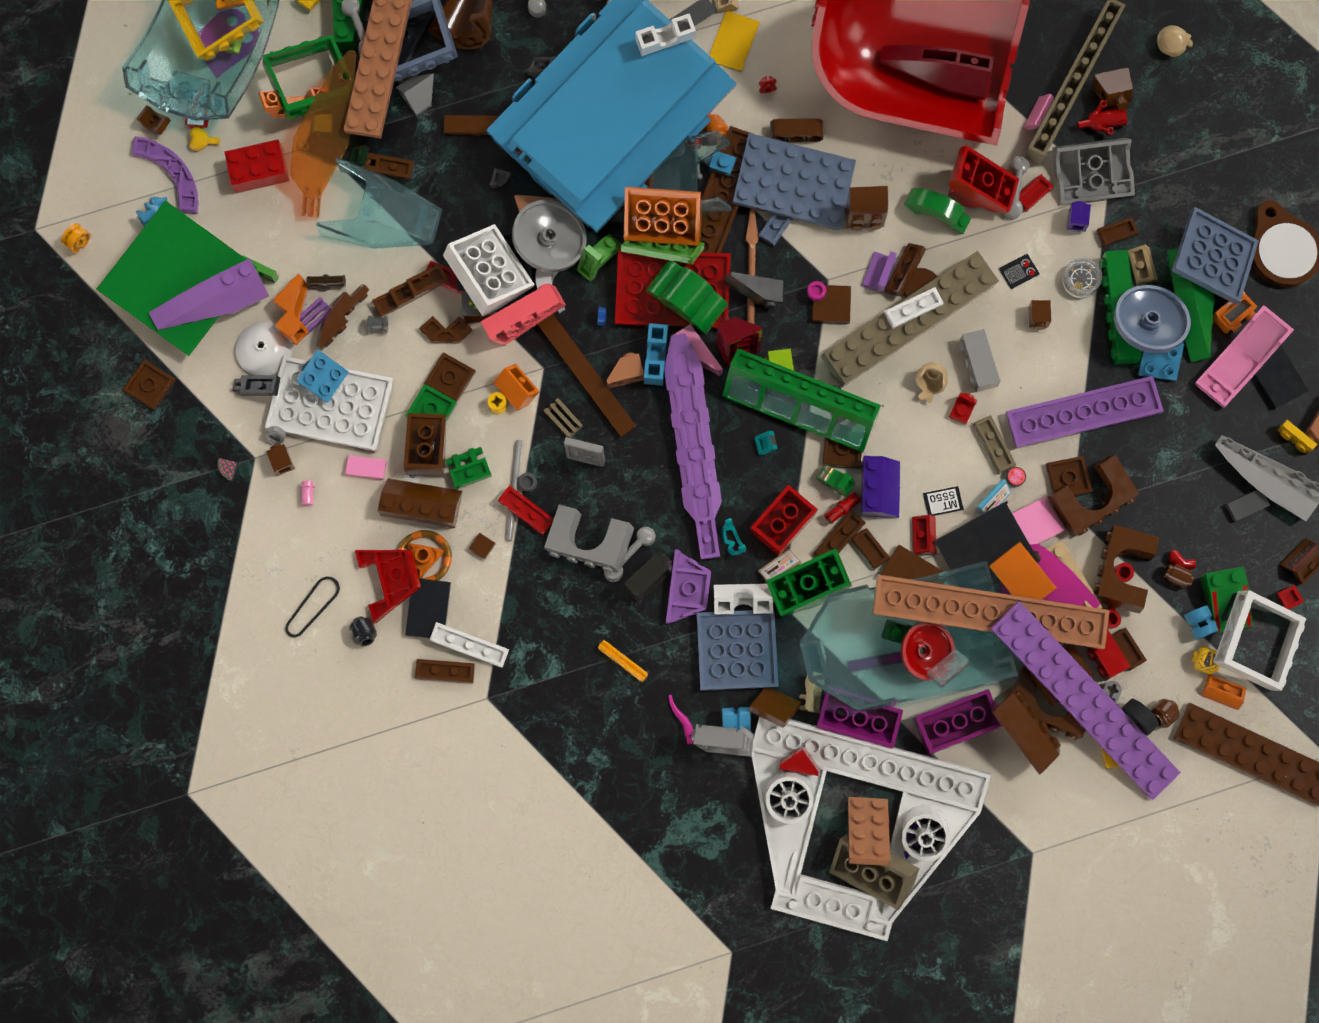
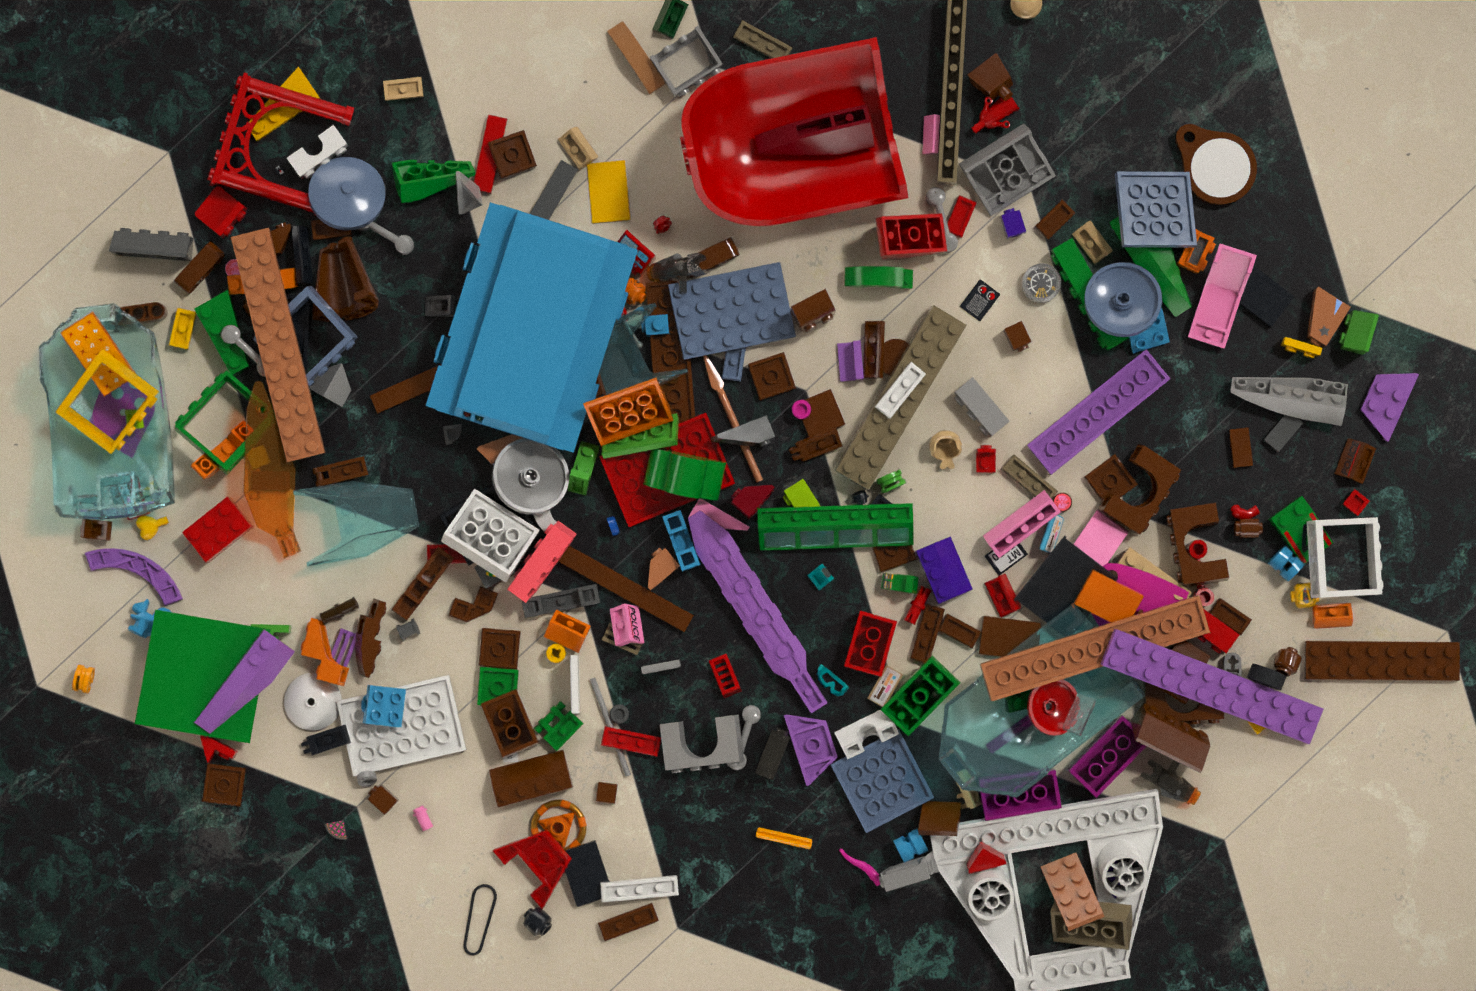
camera: 25 degrees left, 10 degrees up
(154, 347) = (212, 745): none -> red slope
(359, 155) = (308, 474): clear green tile -> none
(366, 467) = (464, 769): bright pink tile -> none
(500, 434) = (575, 683): none -> white tile
(526, 361) = (561, 601): none -> dark grey slope
(572, 405) = (626, 625): none -> bright pink panel
(638, 504) = (733, 690): none -> red slope
(678, 31) = (554, 244): white arch -> none
(737, 101) = (644, 256): none -> red slope
(763, 123) = (678, 268): none -> clear smoke piece
(803, 253) = (771, 376): none -> reddish brown tile
(816, 327) = (816, 445): none -> reddish brown hinge
(868, 387) = (890, 479): none -> bright green wheel
(971, 476) = (1021, 524): none -> bright pink brick
(1005, 776) = (1171, 784): none -> clear smoke piece
(1202, 502) = (1240, 447): none -> reddish brown tile

